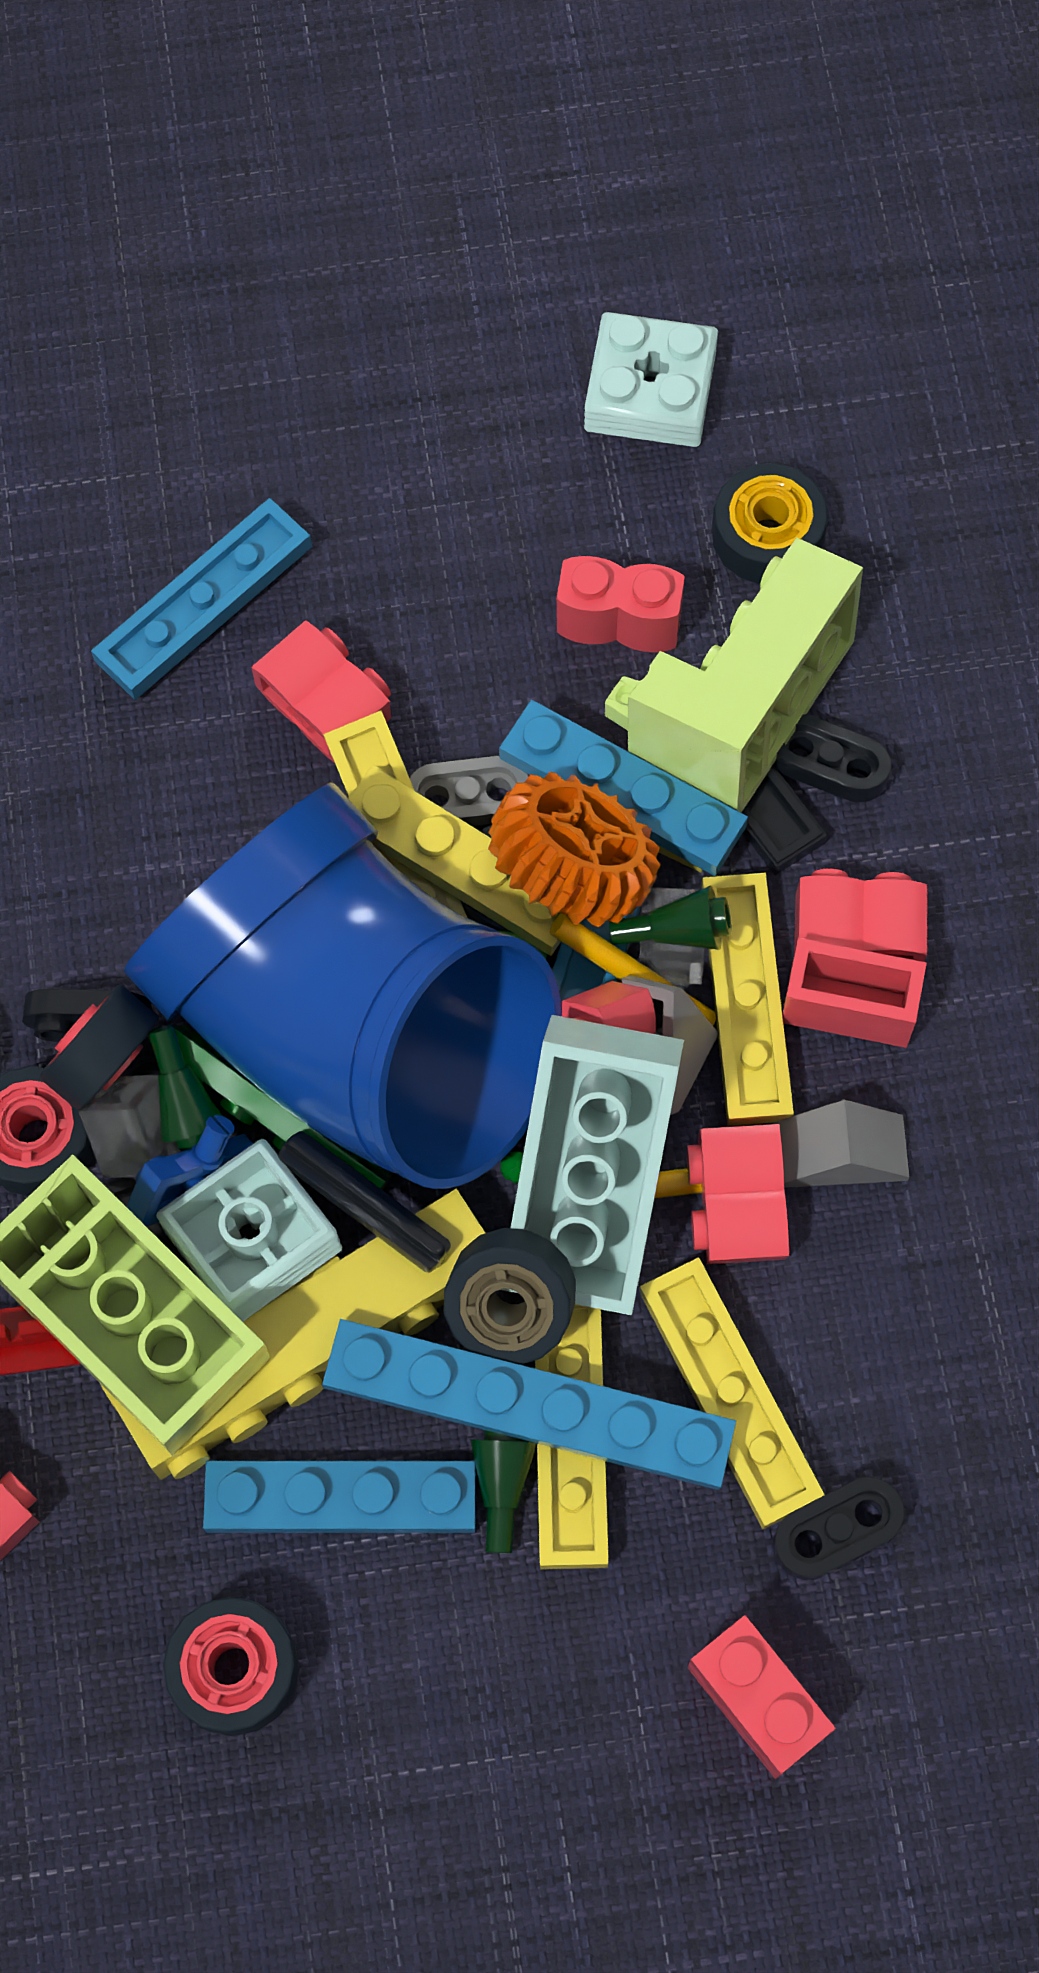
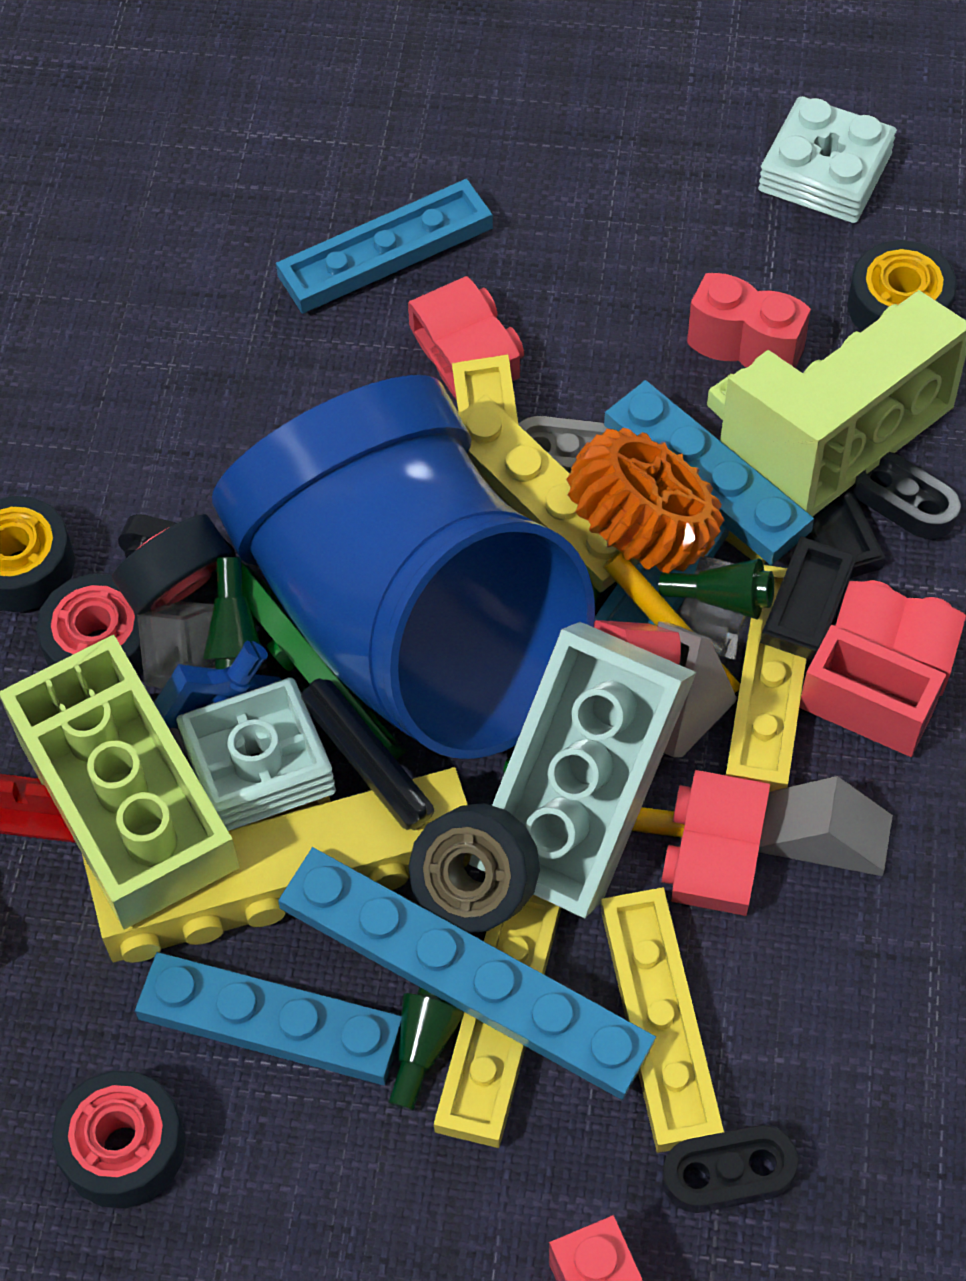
camera: 15 degrees right, 10 degrees down
(764, 906) = (808, 598): none -> black tile

